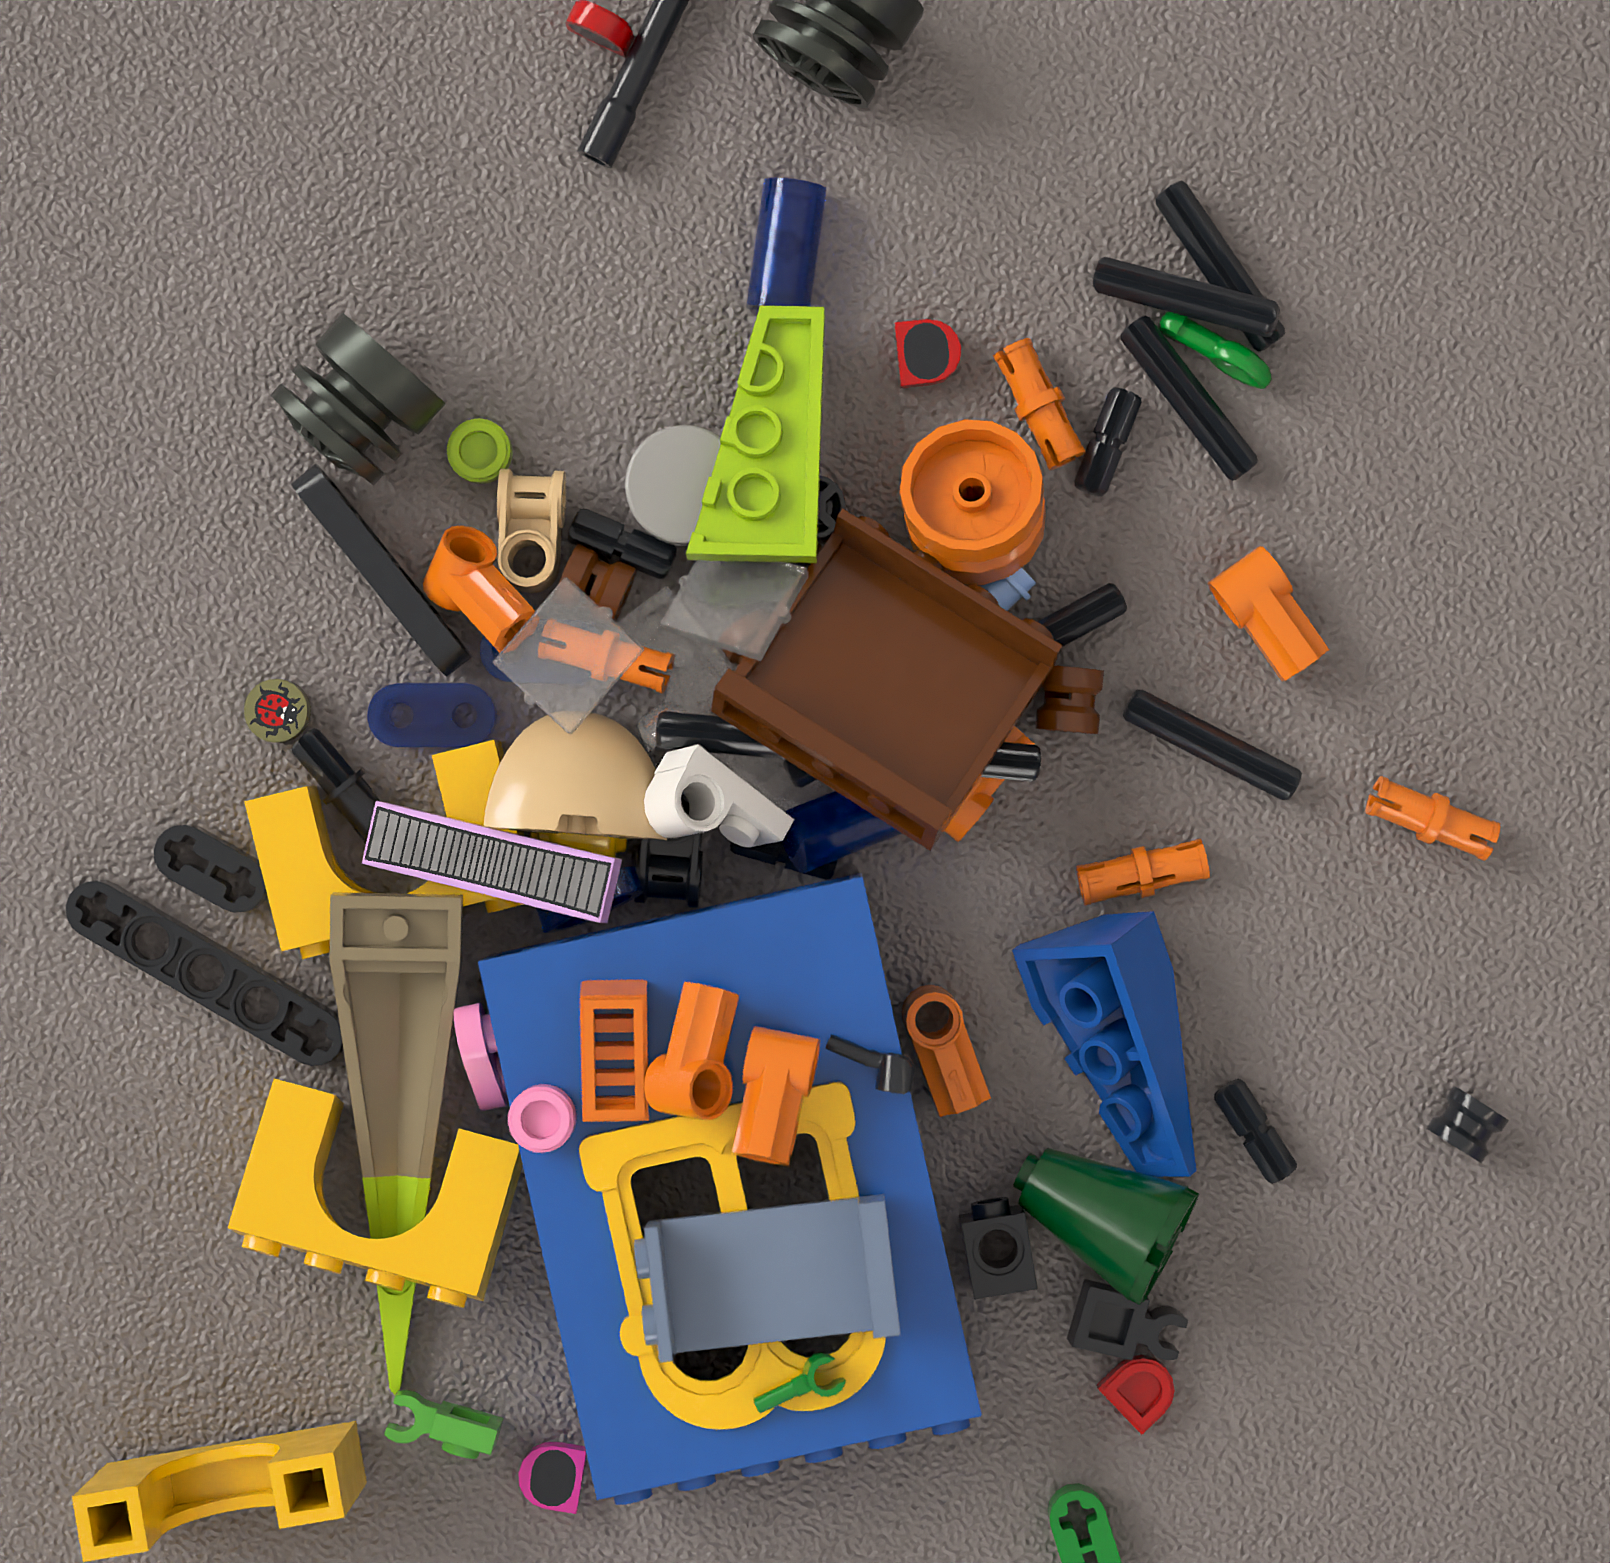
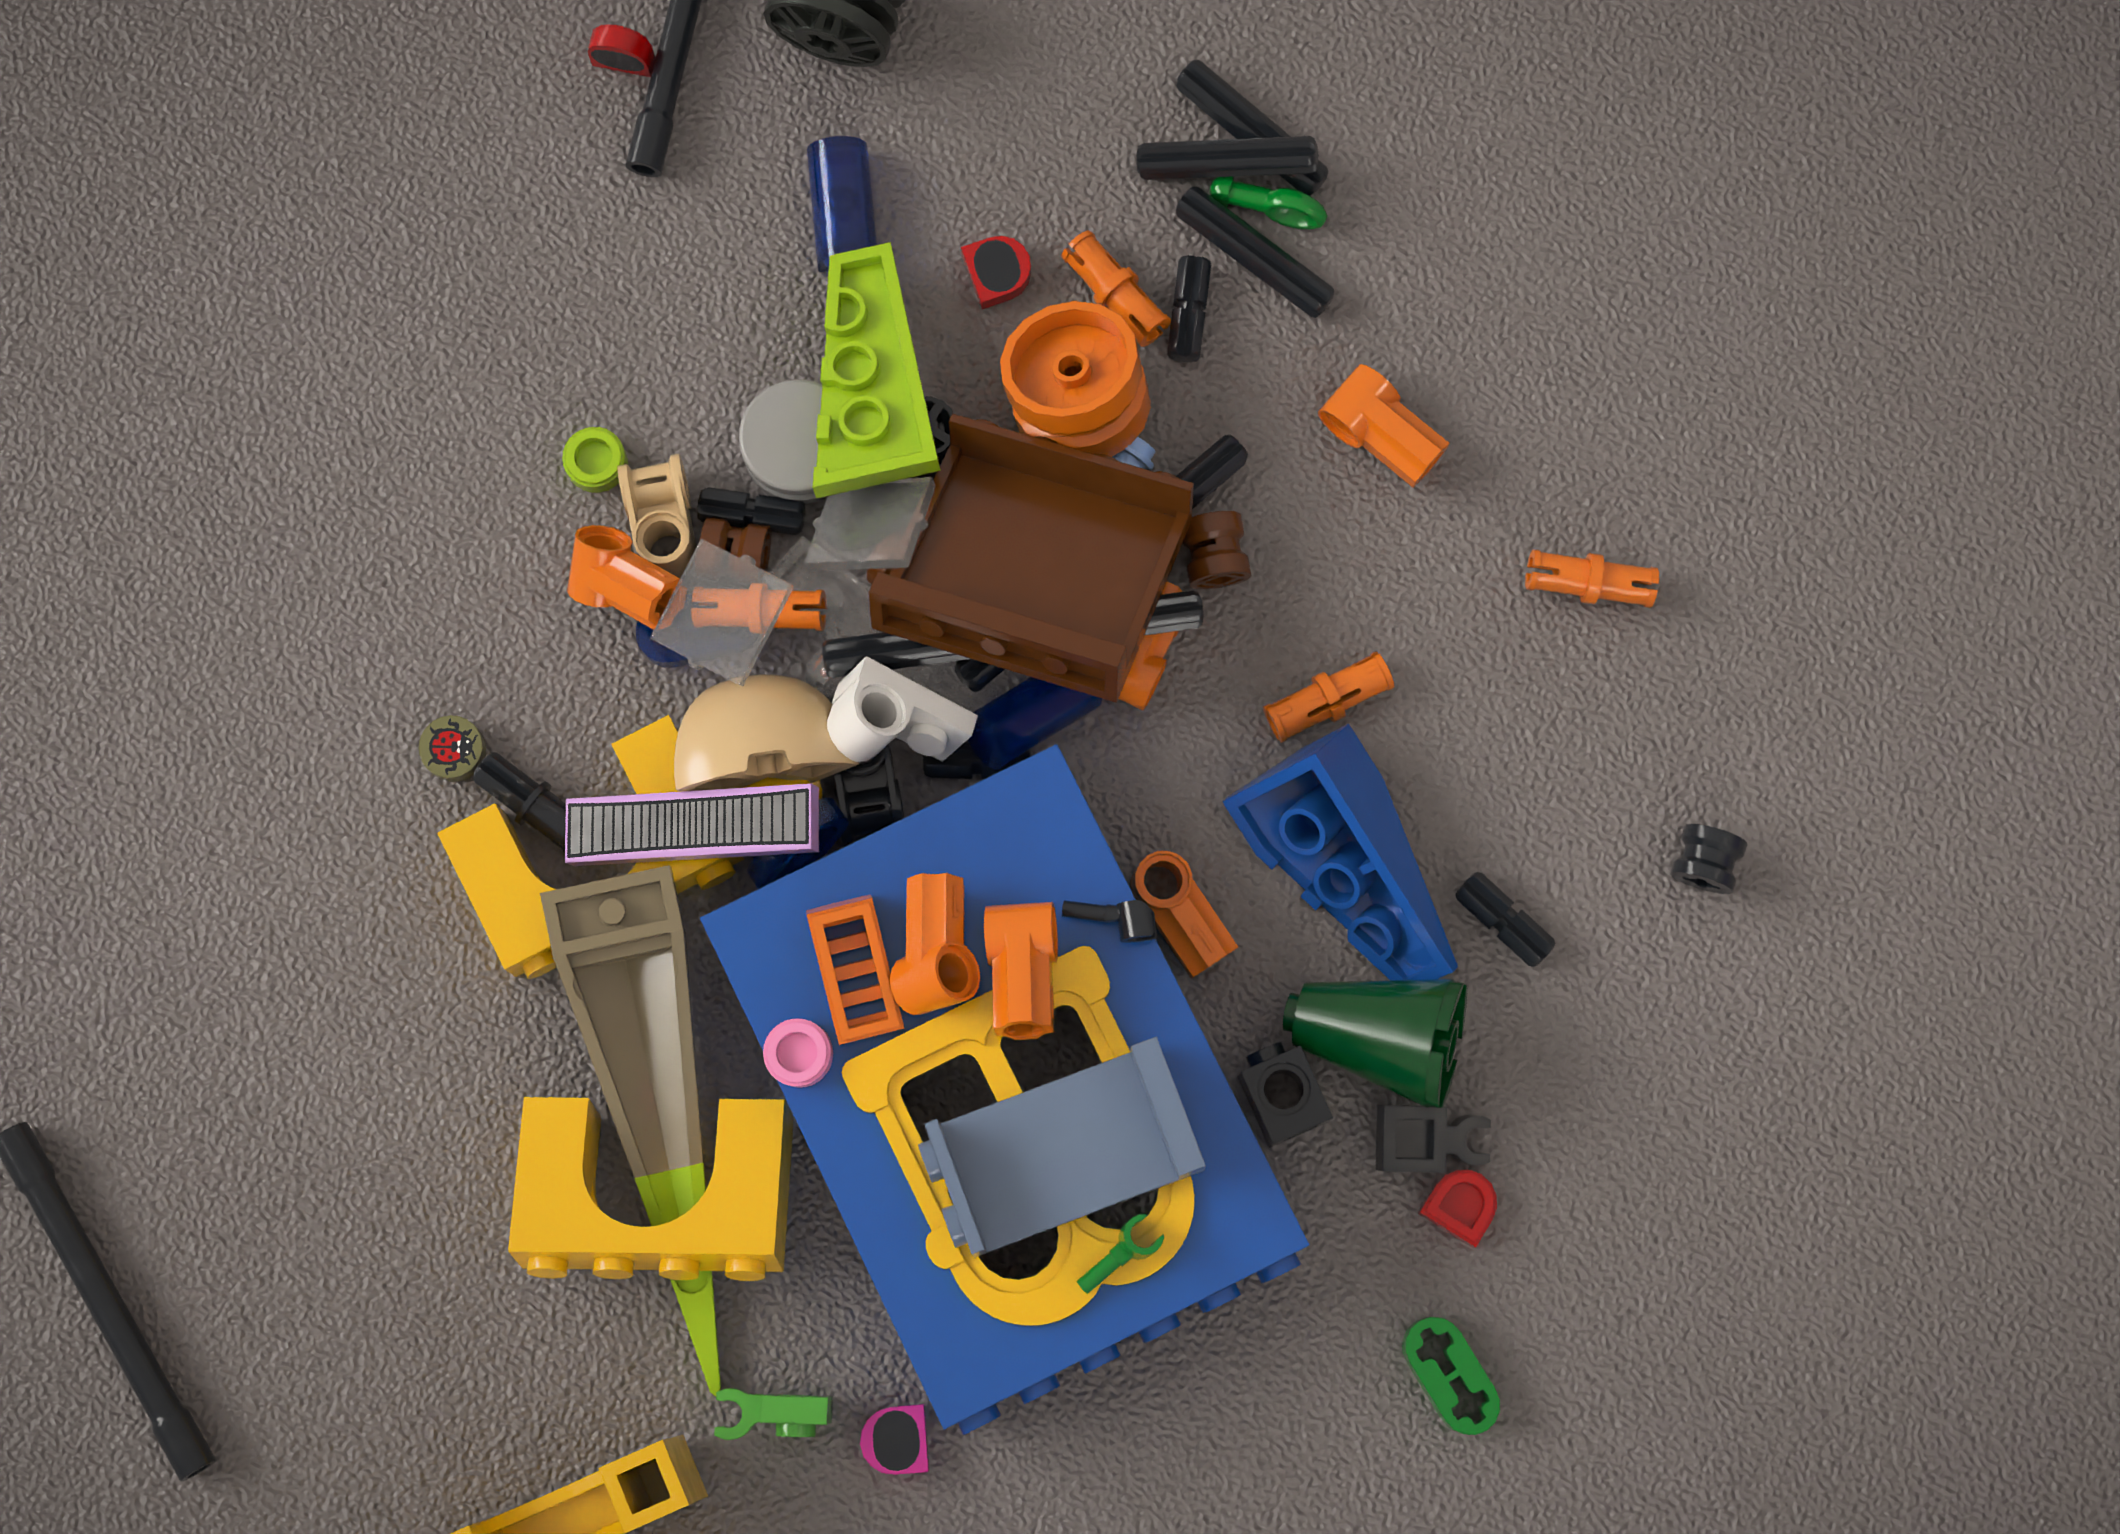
camera: 10 degrees left, 10 degrees down
(175, 966) = (405, 1012): black beam -> none
(204, 881) = (416, 929): black beam -> none
(357, 400) = (470, 420): pearl dark grey wheel -> none
(381, 570) = (524, 588): black beam -> none
(433, 715) = (605, 710): clear blue plate -> none
(480, 1056) = (720, 1009): bright pink plate -> none
(1212, 745) = (1363, 562): black axle -> none

